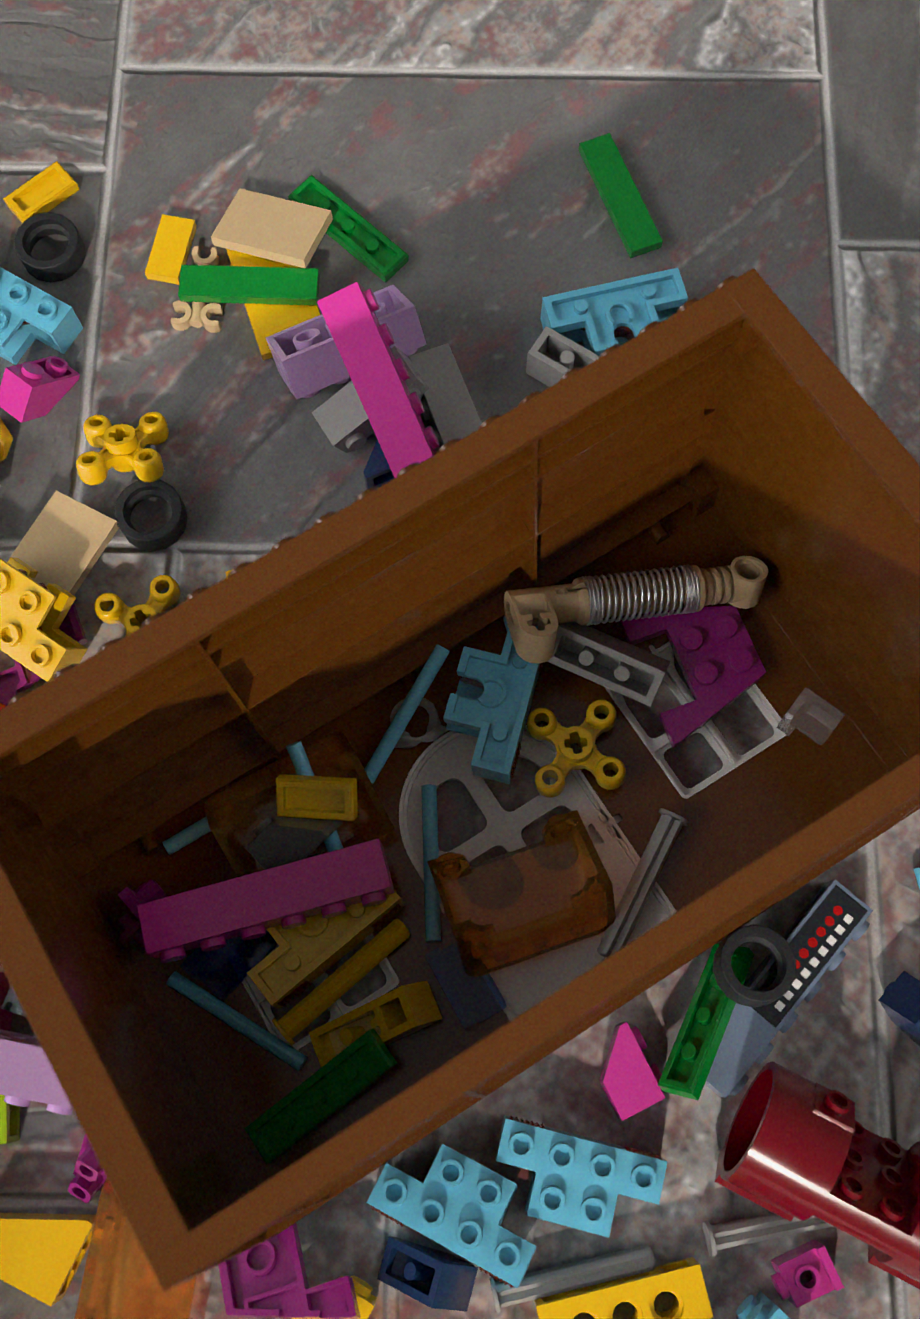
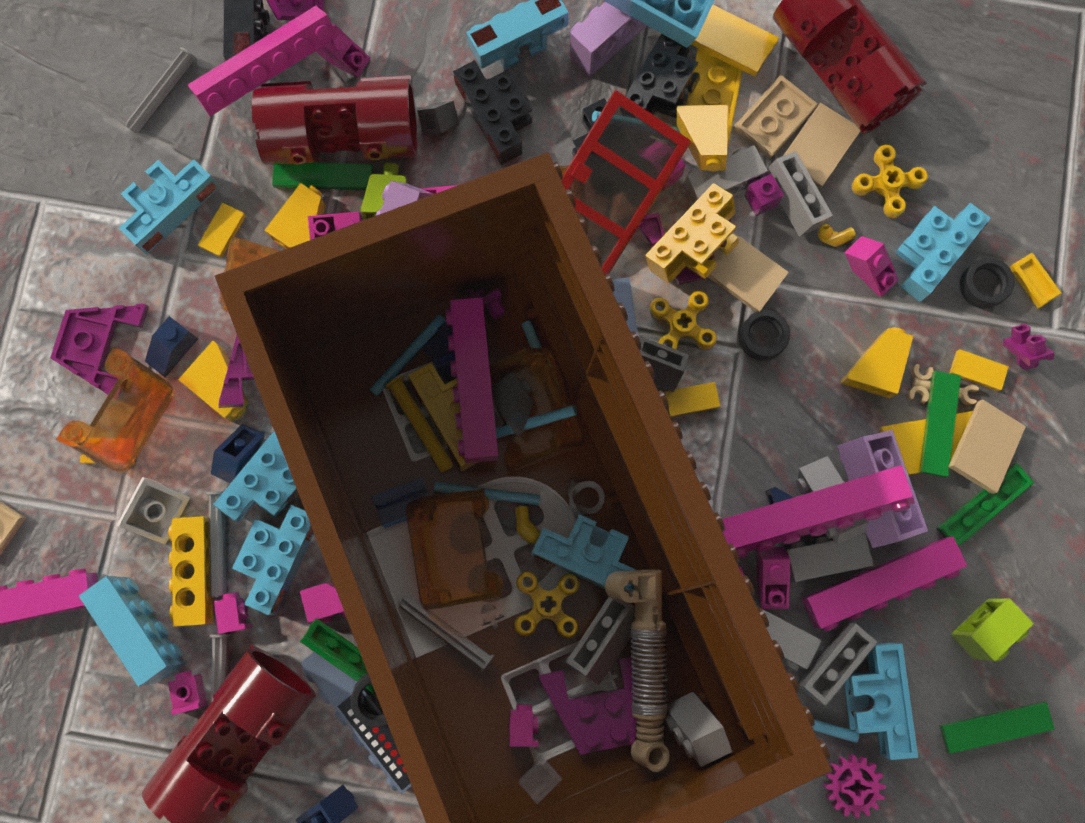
camera: 100 degrees right, 5 degrees up
(36, 1181) = (324, 224): none -> dark pink slope
(122, 448) = (815, 320): yellow gear -> none
(136, 190) = (1027, 348): none -> magenta hips
(175, 362) = (882, 364): none -> yellow slope
(316, 797) = (536, 420): yellow tile -> none
(320, 1095) = (349, 401): green tile -> none
(391, 1015) = (387, 441): yellow slope -> none
(406, 712) = (591, 491): medium azure bar -> none
(464, 325) = (883, 583): none -> dark pink brick
(471, 799) = (525, 527): none -> yellow arm
(504, 202) = (992, 629): none -> lime brick
(674, 1226) = (231, 614): none -> dark pink brick
(704, 519) = (696, 729): none -> light grey brick
(748, 753) = (522, 726): none -> dark pink brick

